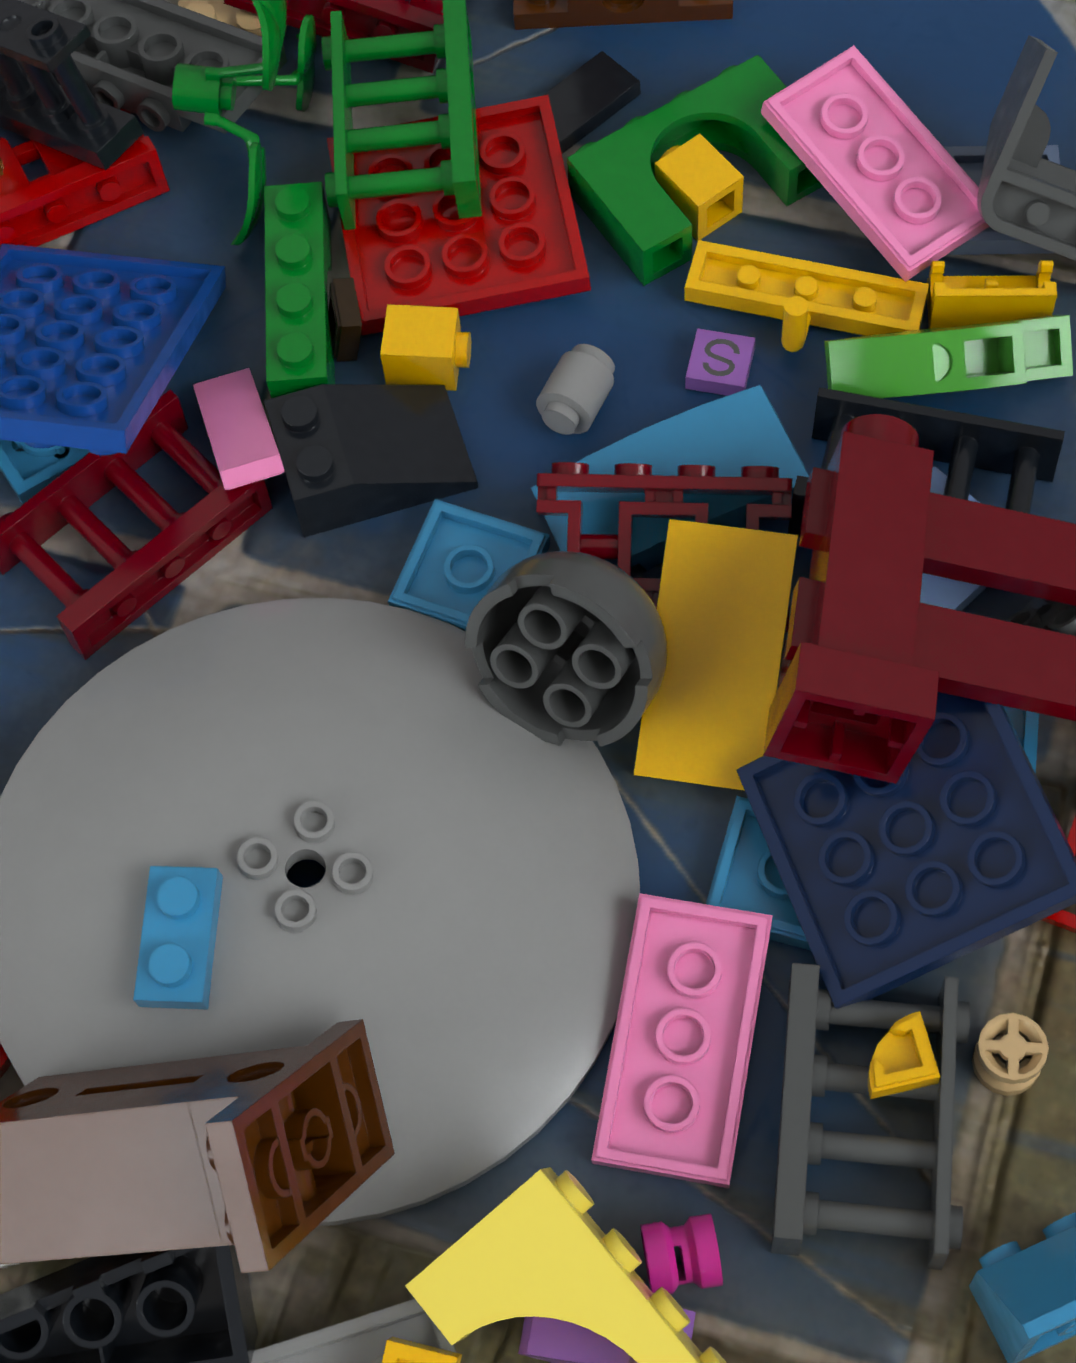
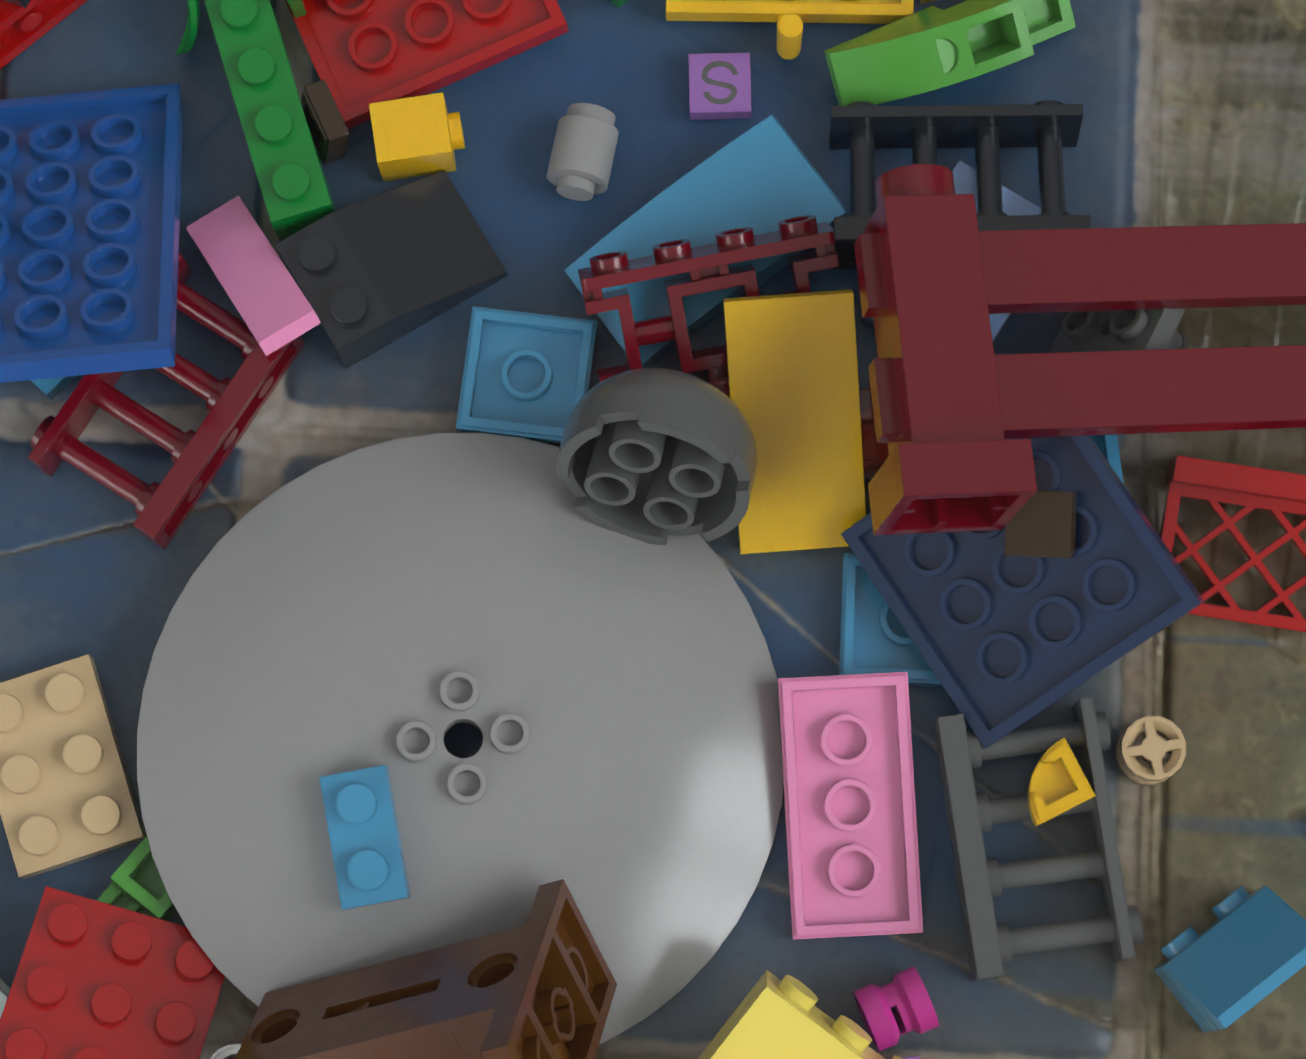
camera: 15 degrees left, 15 degrees up
(938, 783) = (1044, 526): none -> dark brown tile

